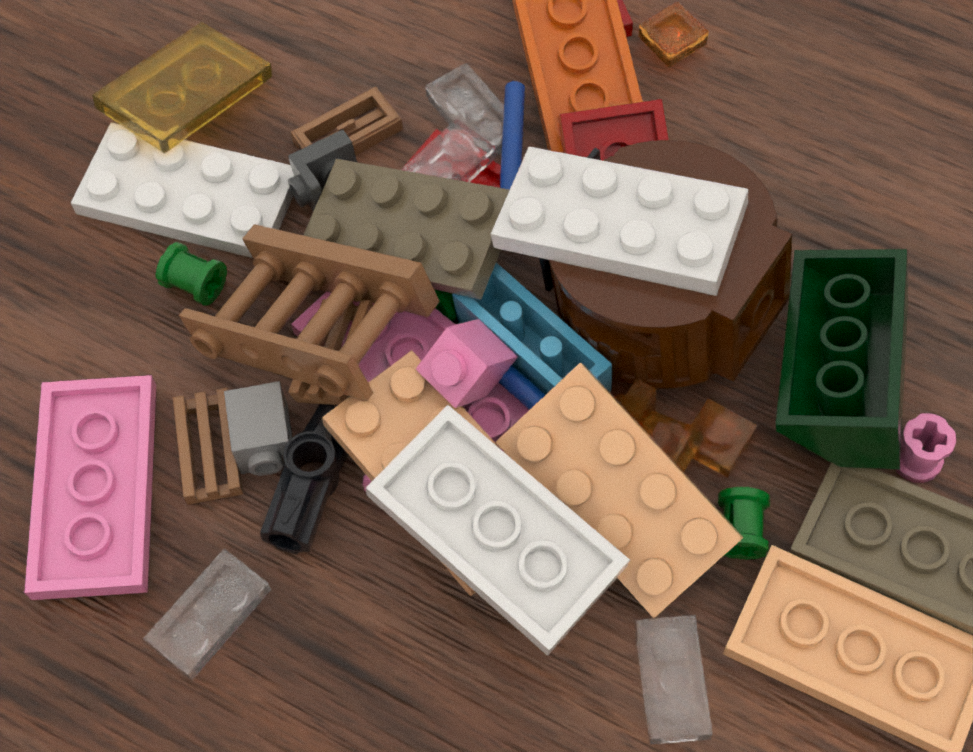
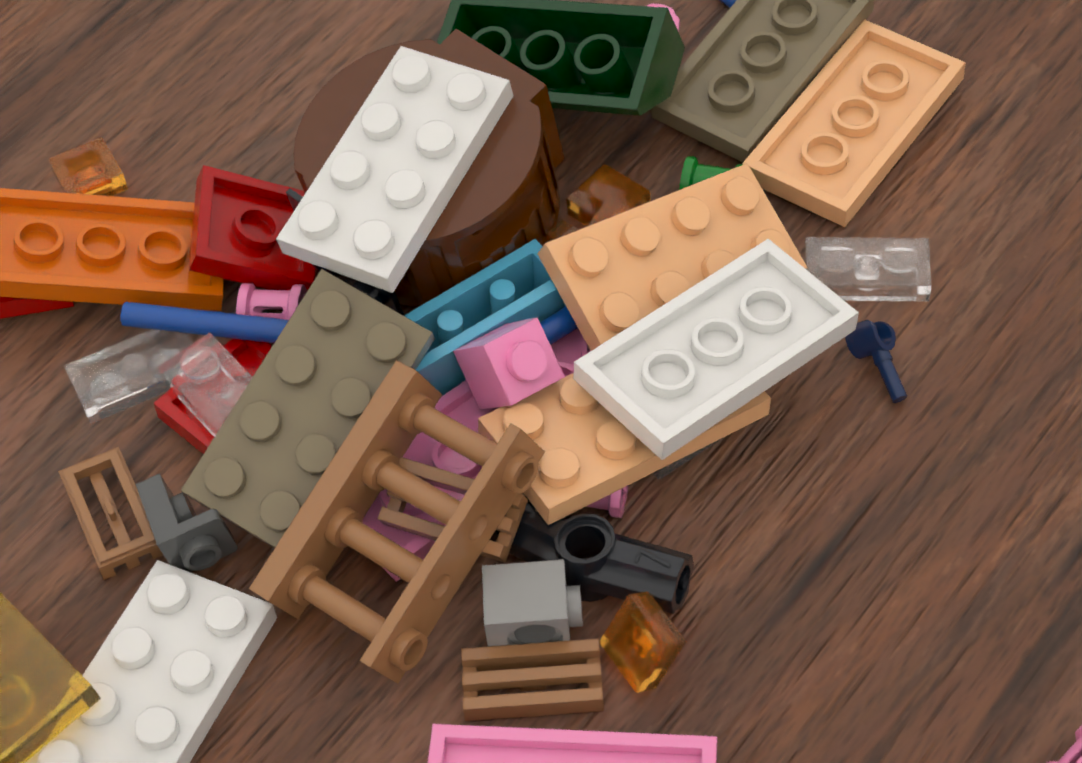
camera: 80 degrees left, 10 degrees down
(191, 273) = (288, 683): green bush -> none
(207, 614) = (757, 676): clear plate -> none
(234, 520) = (642, 641): none -> clear orange plate
(570, 693) = (876, 341): none -> dark blue hand

